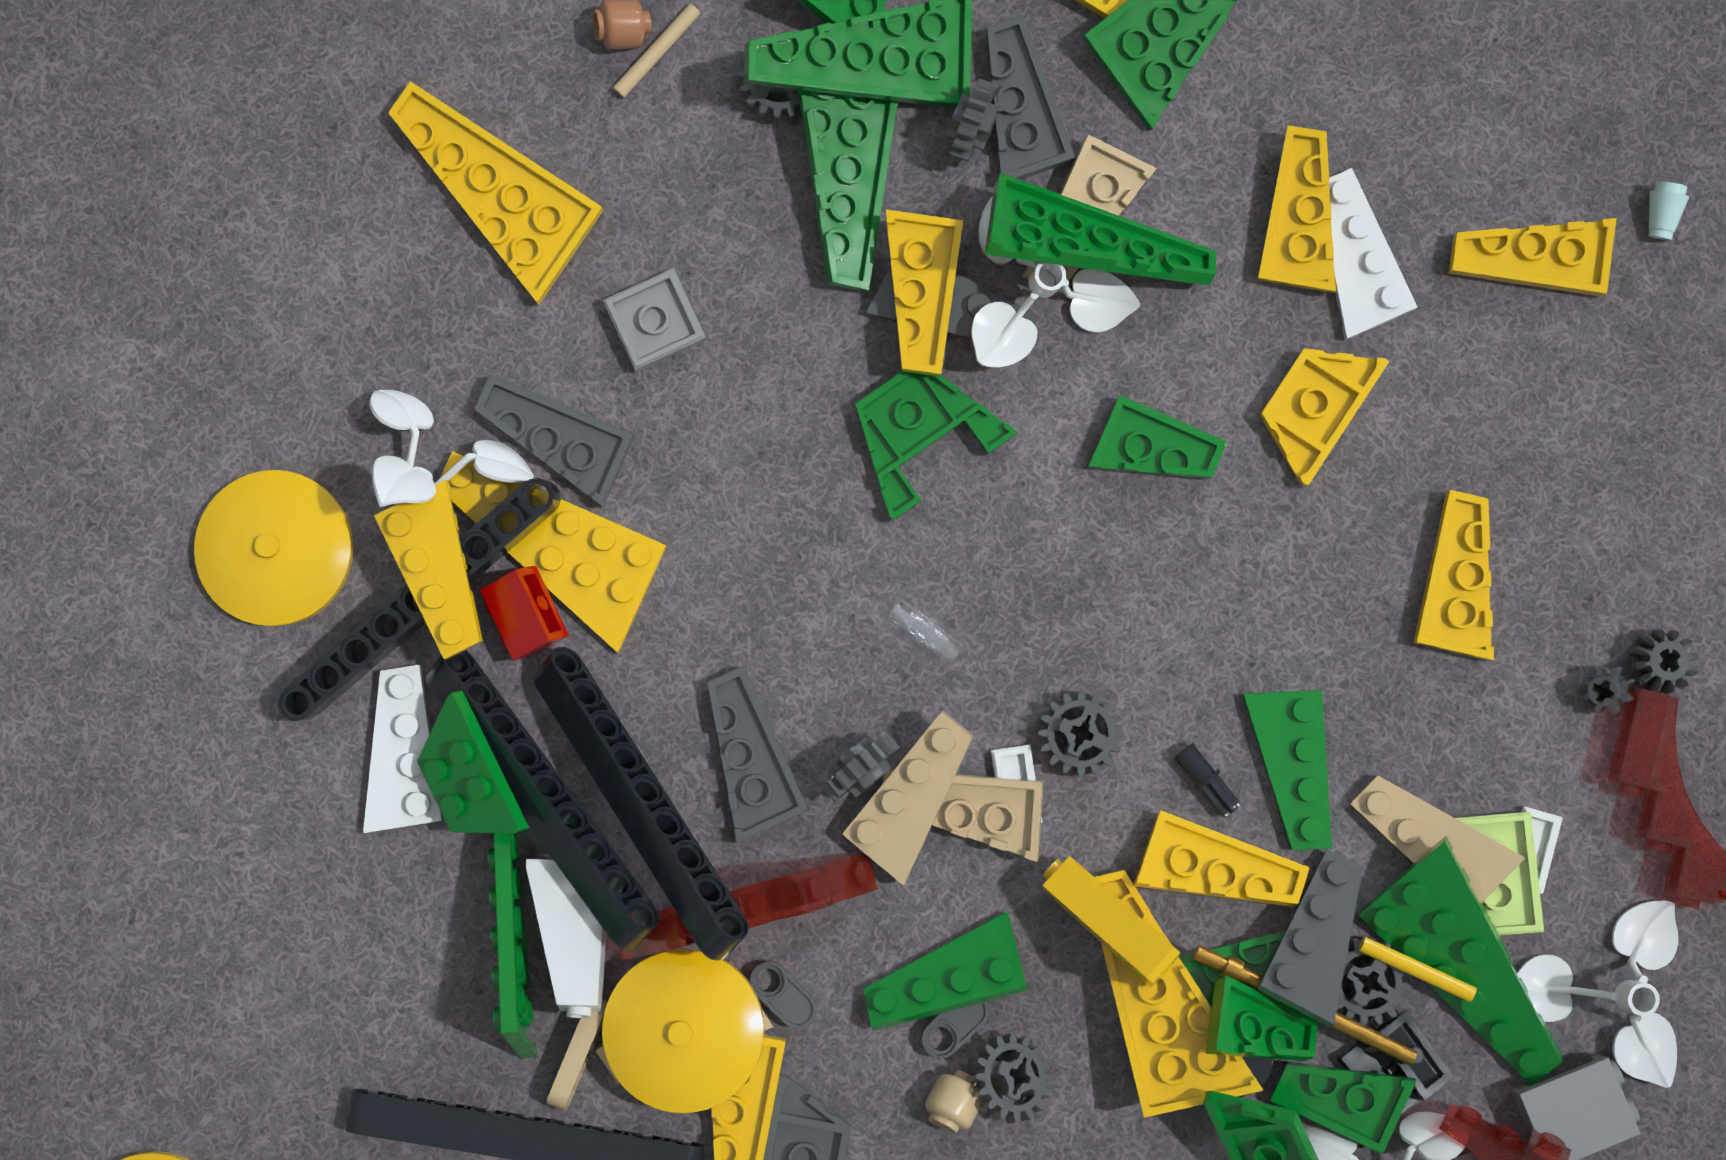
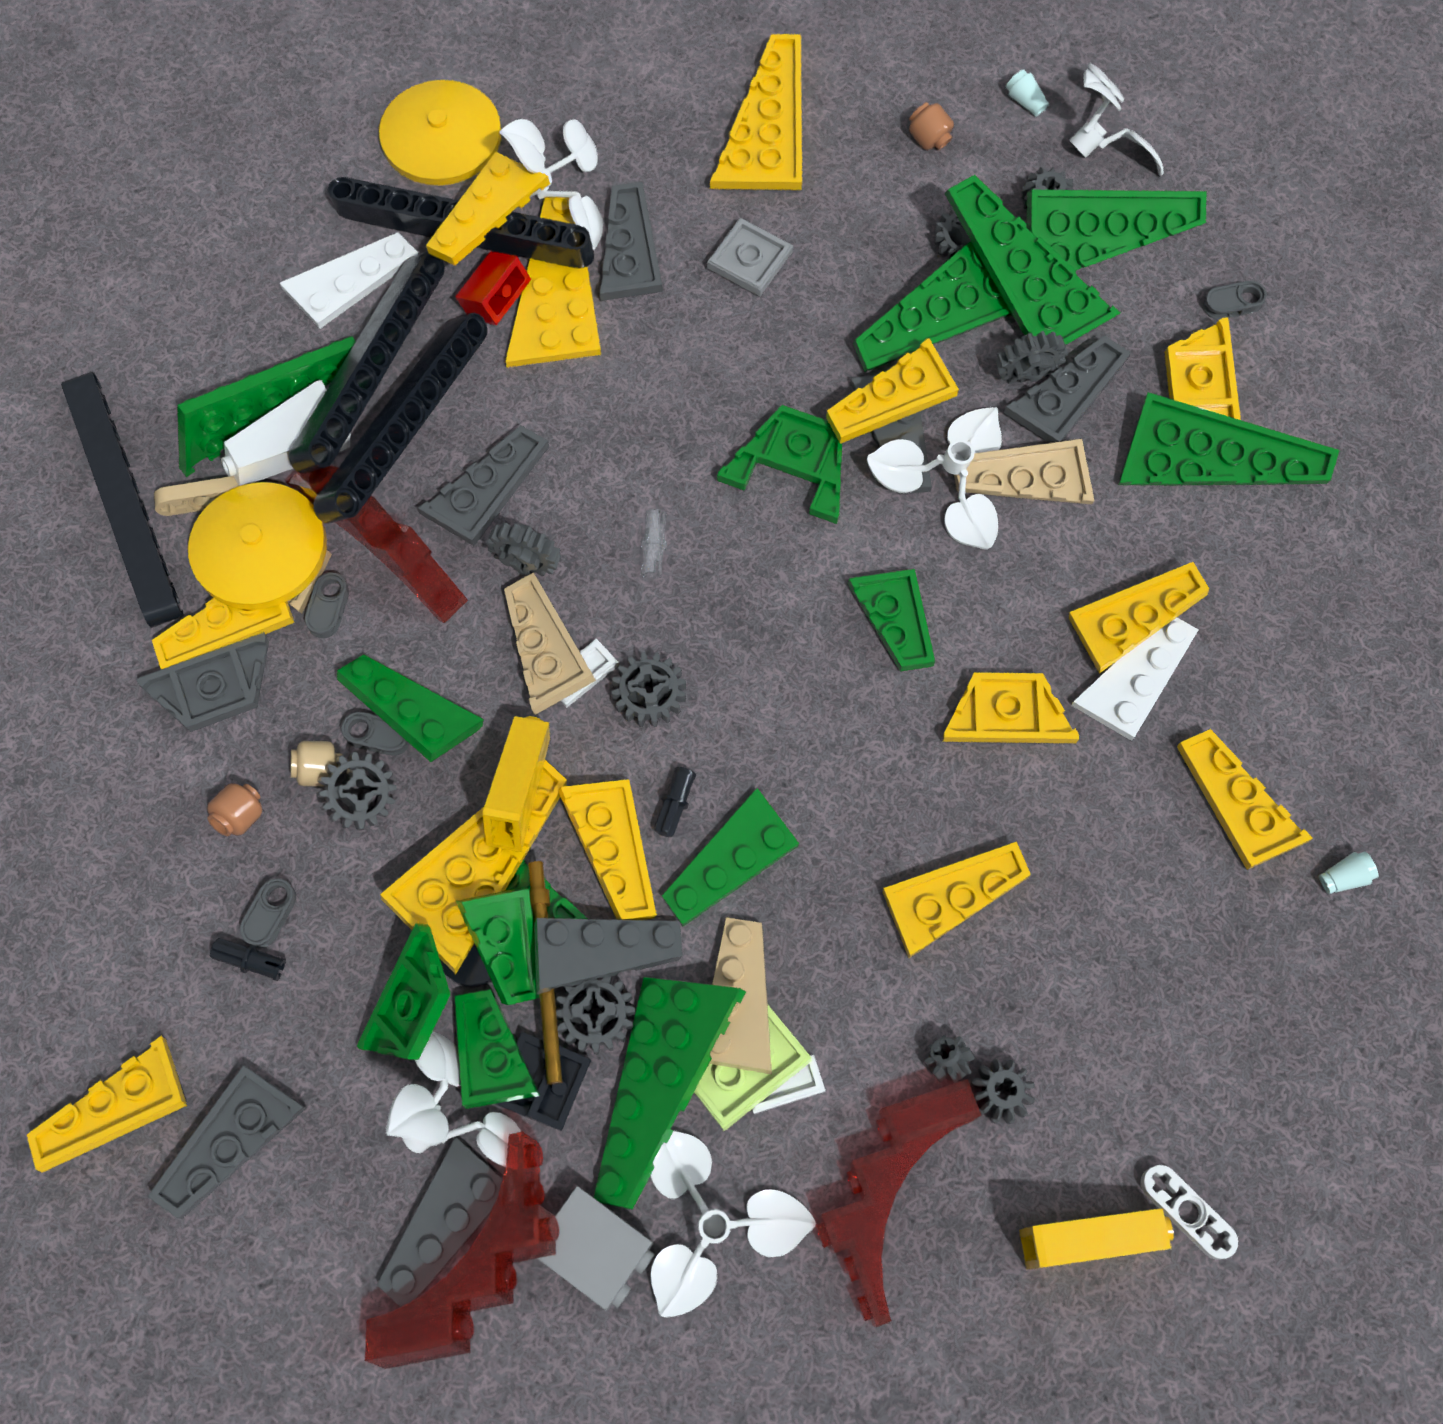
camera: 55 degrees right, 15 degrees down
(467, 775) = (357, 305): green wing -> none
(656, 50) = (930, 160): tan bar -> none
(905, 806) = (522, 597): tan wing -> none
(1058, 230) = (1001, 451): green wing -> none
(1417, 969) = (627, 1040): yellow bar -> none

